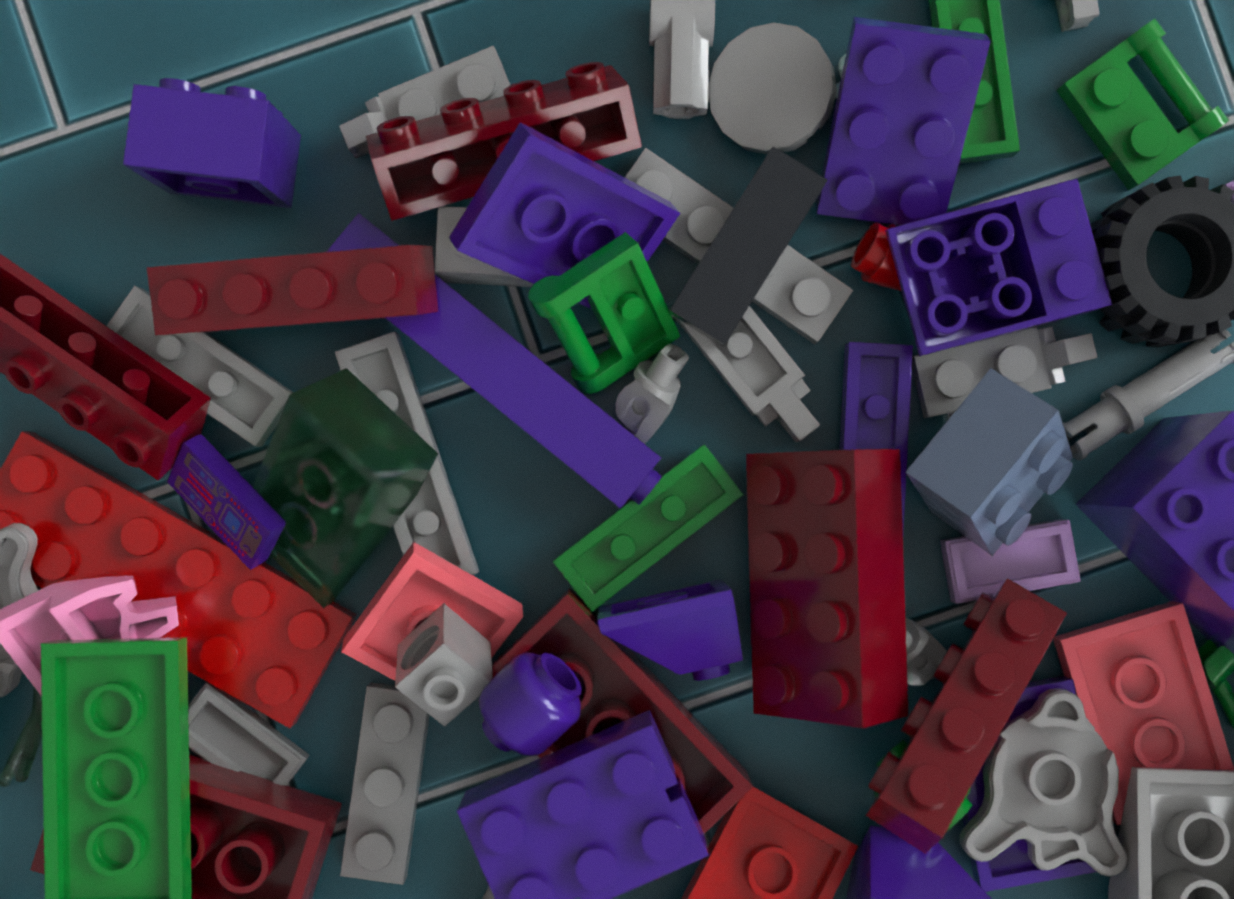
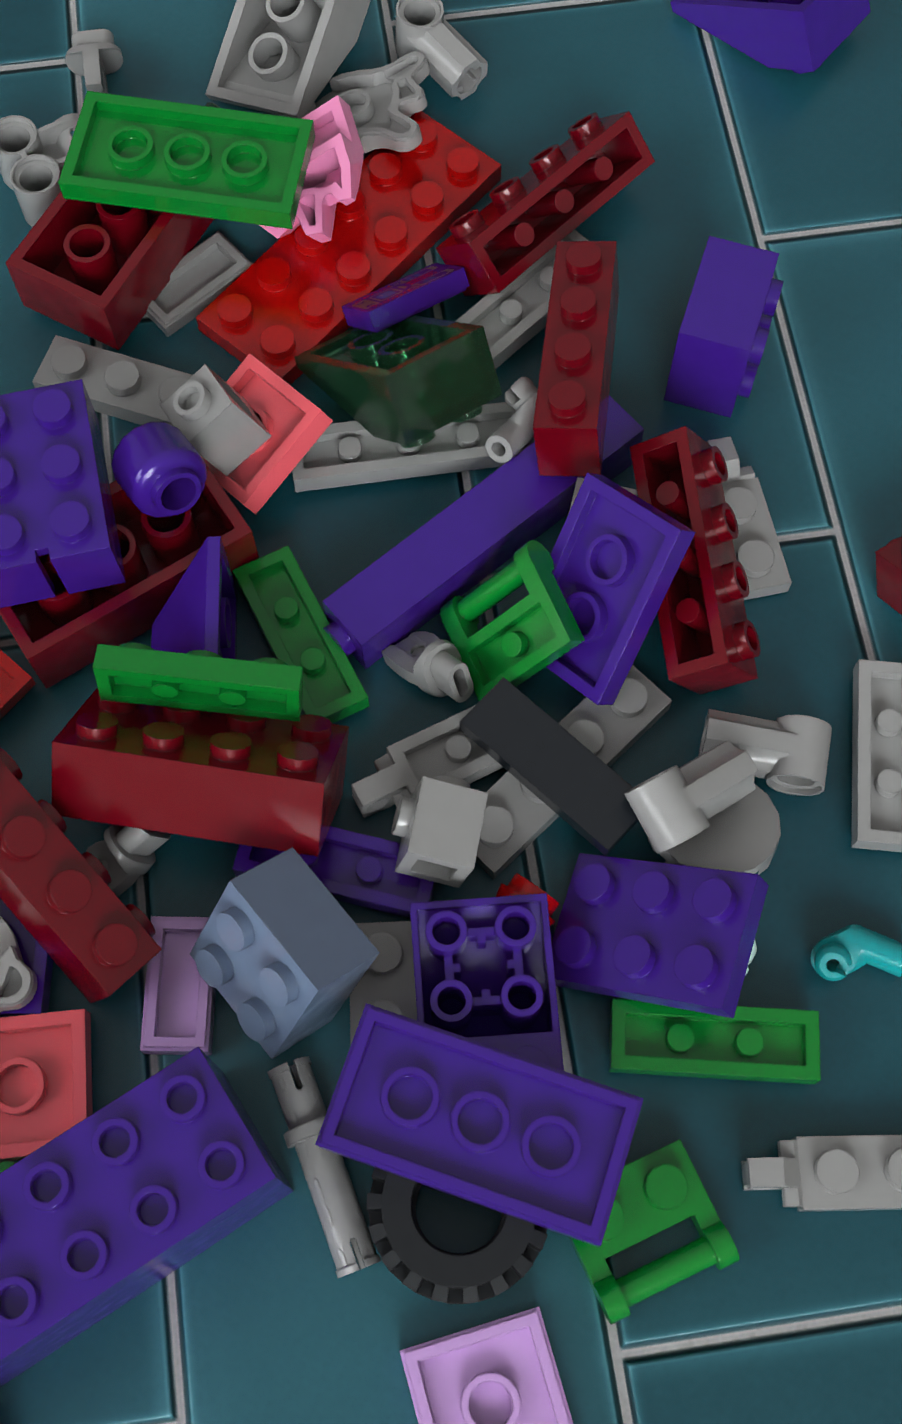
camera: 100 degrees right, 20 degrees down
(387, 348) = (519, 427): none -> light grey arm
(757, 603) = (199, 681): none -> green plate
(776, 118) = (681, 799): none -> light grey piece
(842, 341) = (439, 830): none -> light grey brick
(1122, 247) = (481, 1124): none -> dark purple tile

